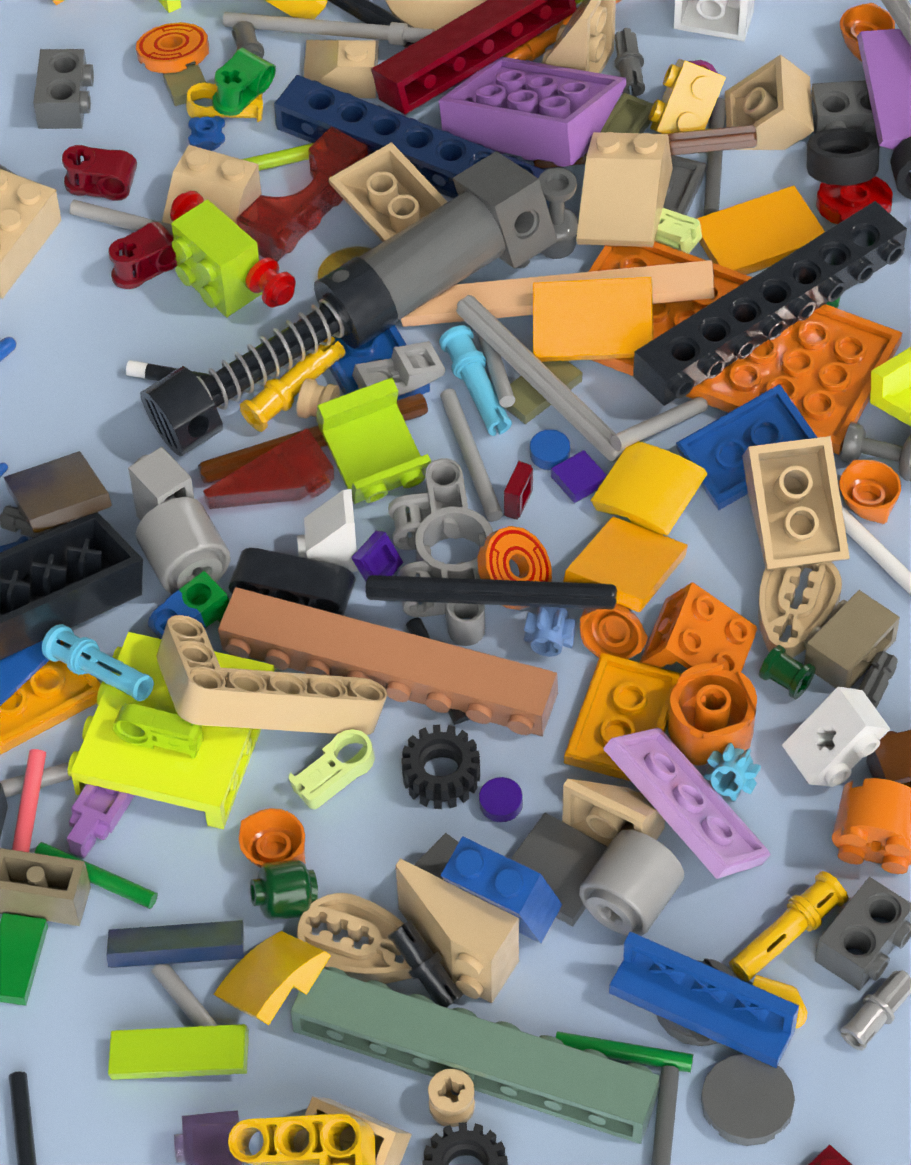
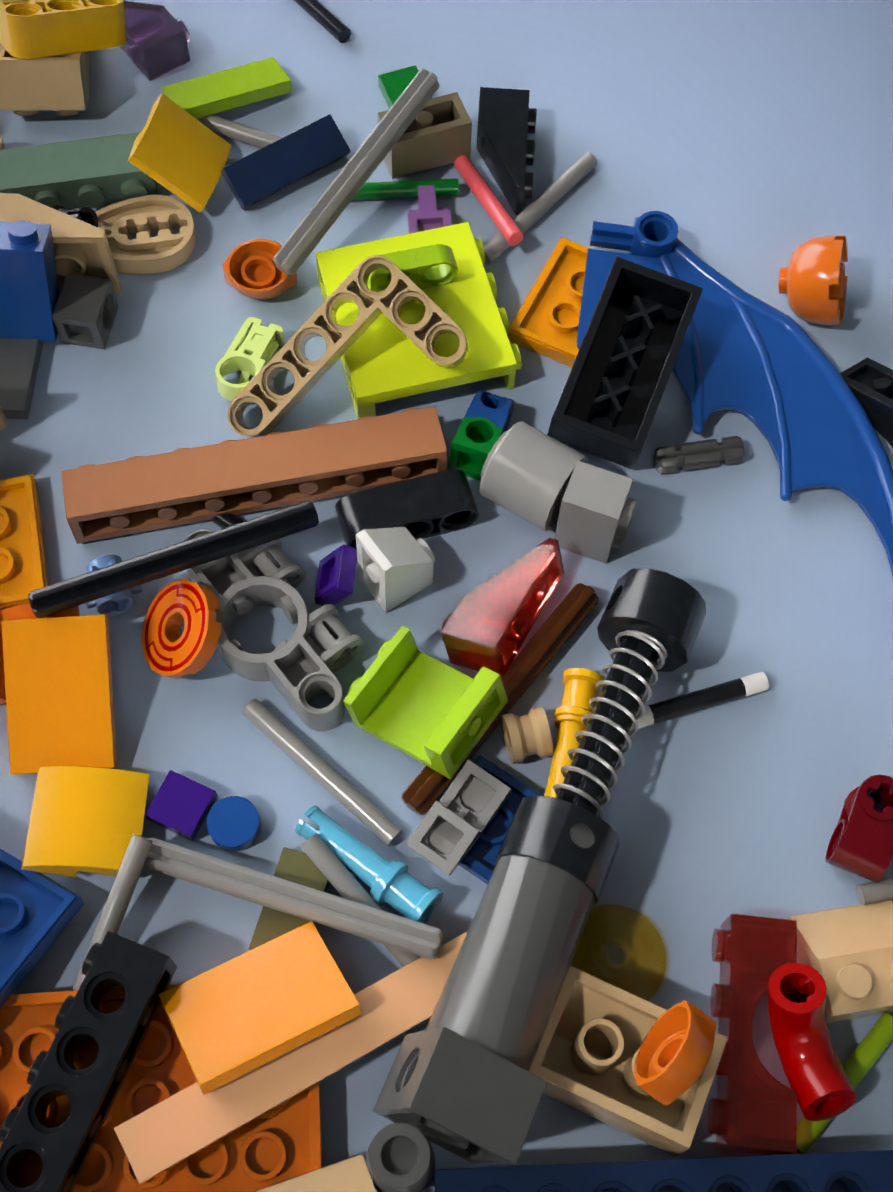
camera: 145 degrees right, 10 degrees up
(57, 492) = (701, 470): dark brown tile -> none
(131, 680) = (536, 317): medium azure pin -> none
(132, 845) = (356, 172): none -> light grey axle
(223, 258) = (774, 849): lime brick -> none
(282, 168) = (804, 1042): none -> red cylinder
(284, 889) = (219, 232): dark green head -> none
(369, 170) = (674, 1052): none -> orange hat
(438, 745) = (143, 384): black tyre -> none
(501, 799) = (77, 412): dark purple tile -> none
(518, 490) = (234, 737): dark red tile -> none

